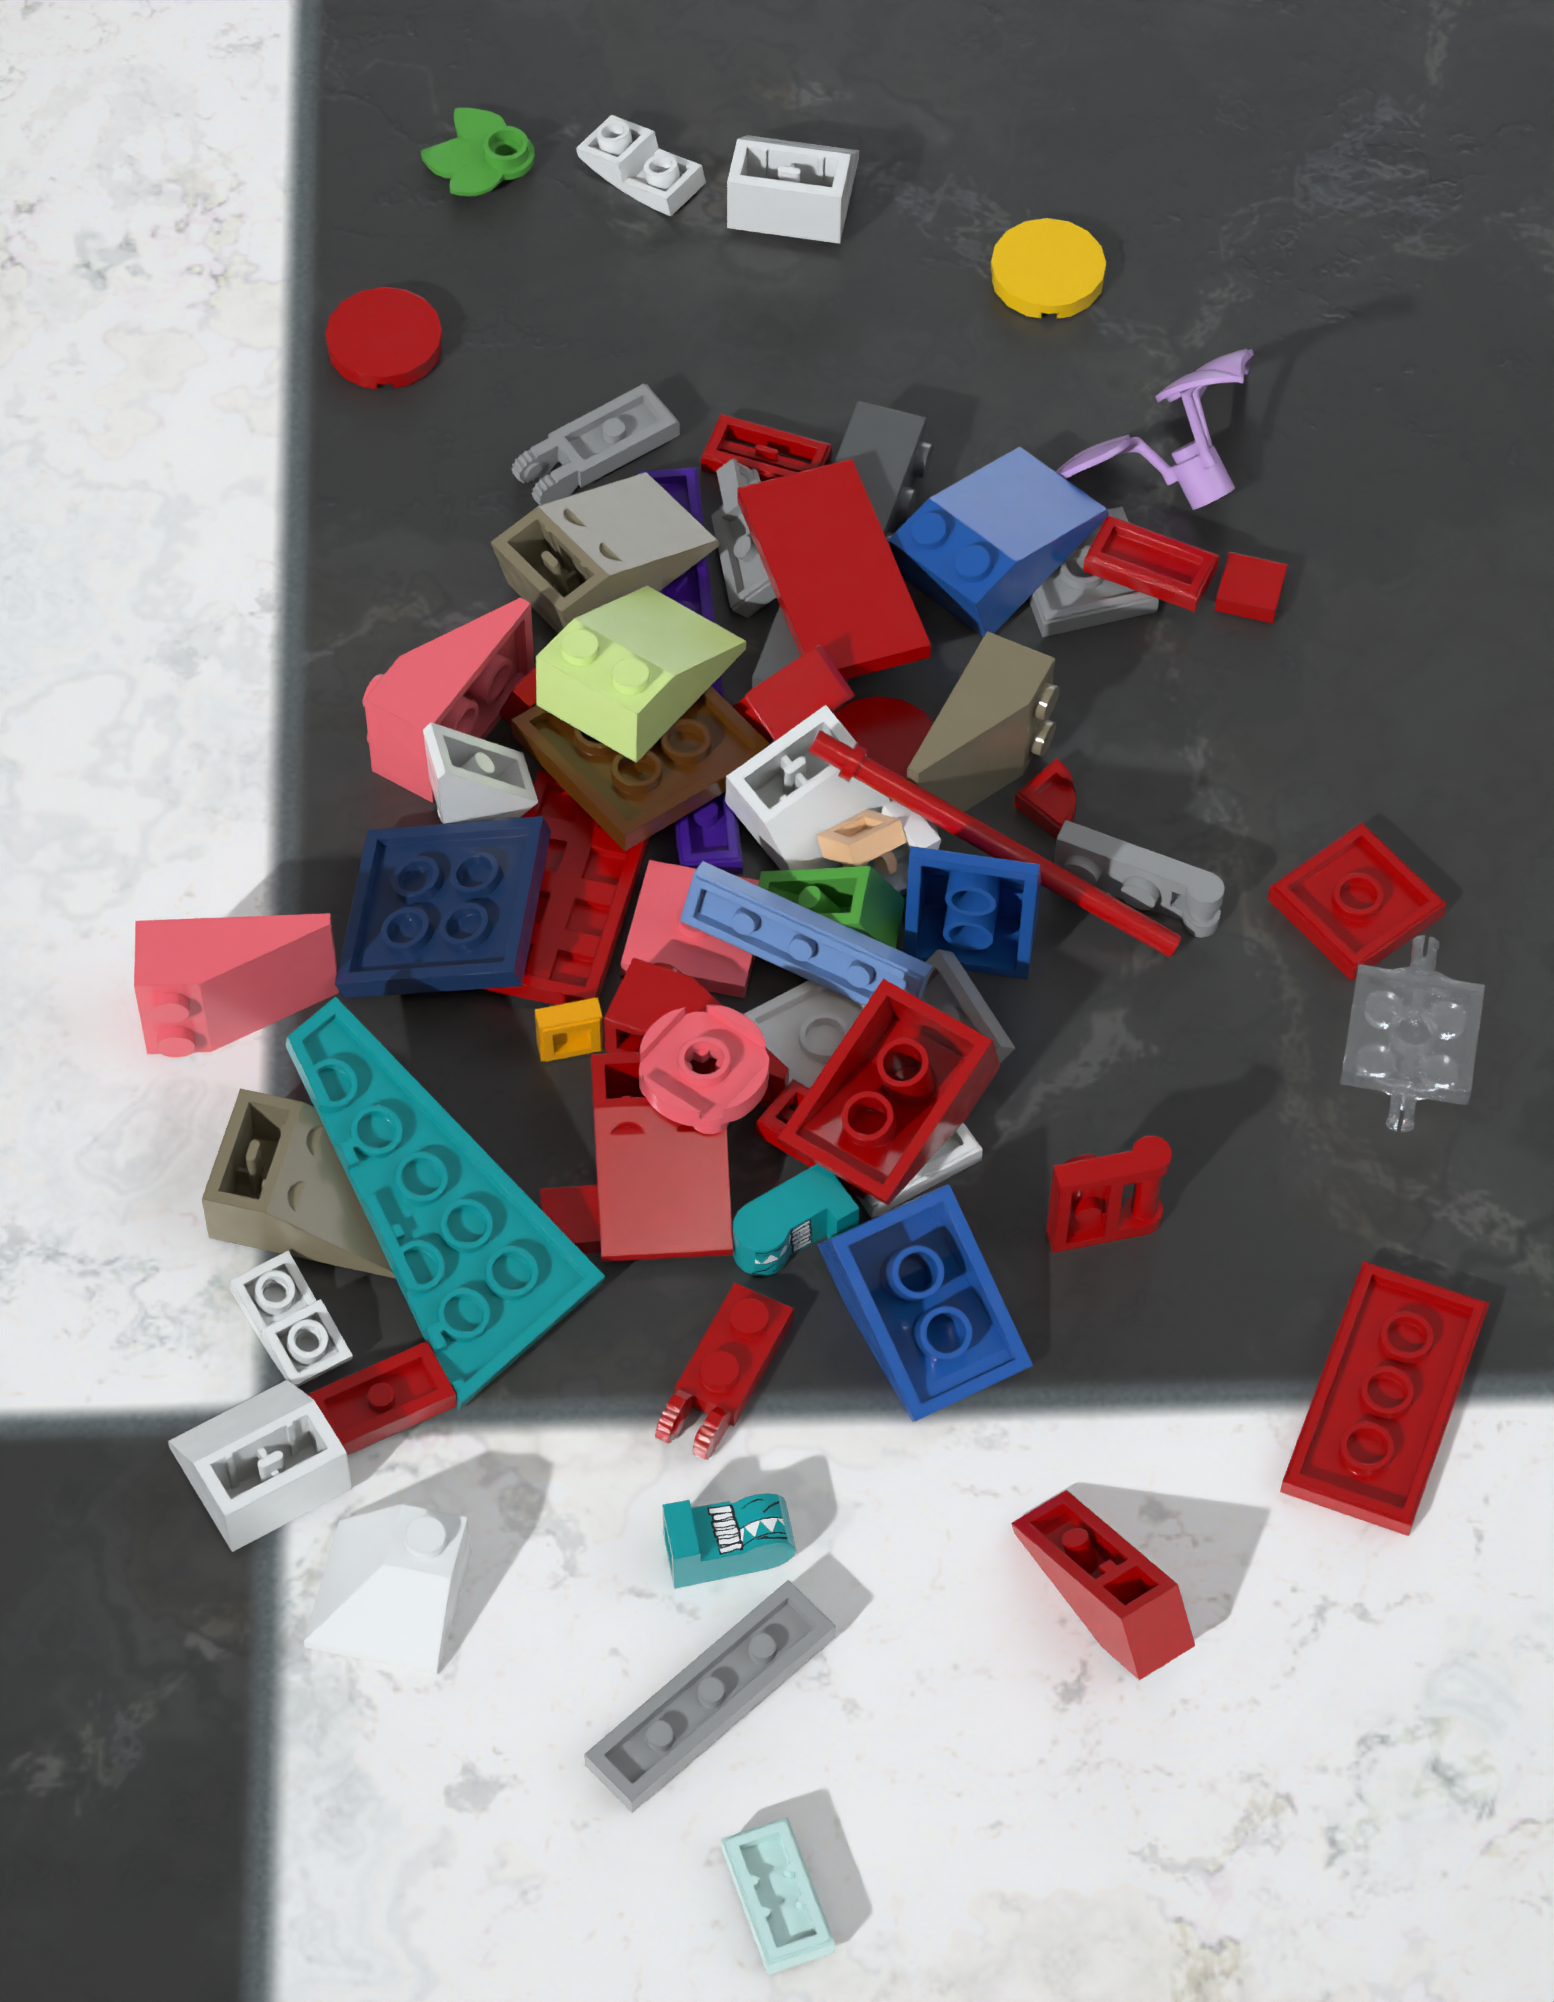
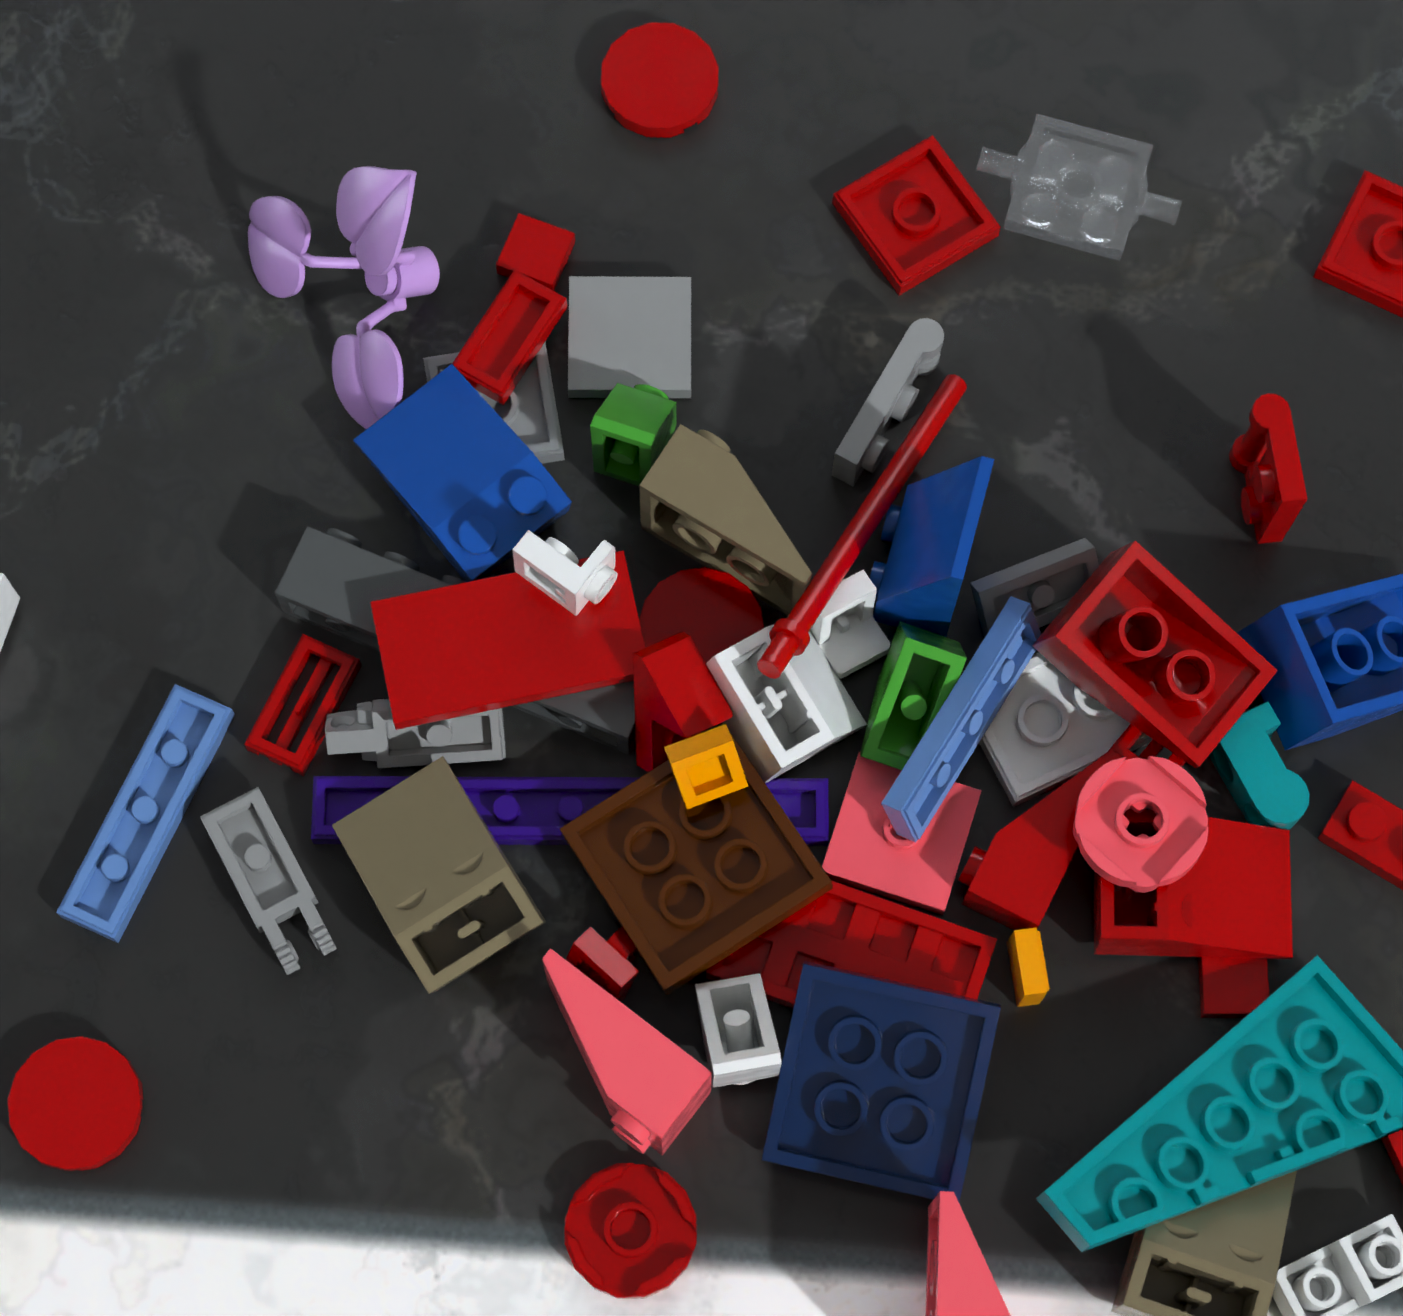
camera: 85 degrees left, 15 degrees up
(299, 765) = (648, 1243): none -> red tile
(632, 669) = (620, 847): yellowish green slope -> none
(651, 357) = (146, 813): none -> medium blue tile
(720, 717) = (706, 766): none -> light orange plate
(864, 839) = (847, 648): light nougat tile -> none
(891, 583) = (555, 570): none -> white bracket
(1048, 268) = (91, 390): yellow tile -> none
(1049, 798) = (777, 473): red tile -> none
(1079, 657) = (631, 431): none -> bright green slope
(1175, 670) = (629, 334): none -> light grey tile
(1461, 671) = (659, 79): none -> red tile

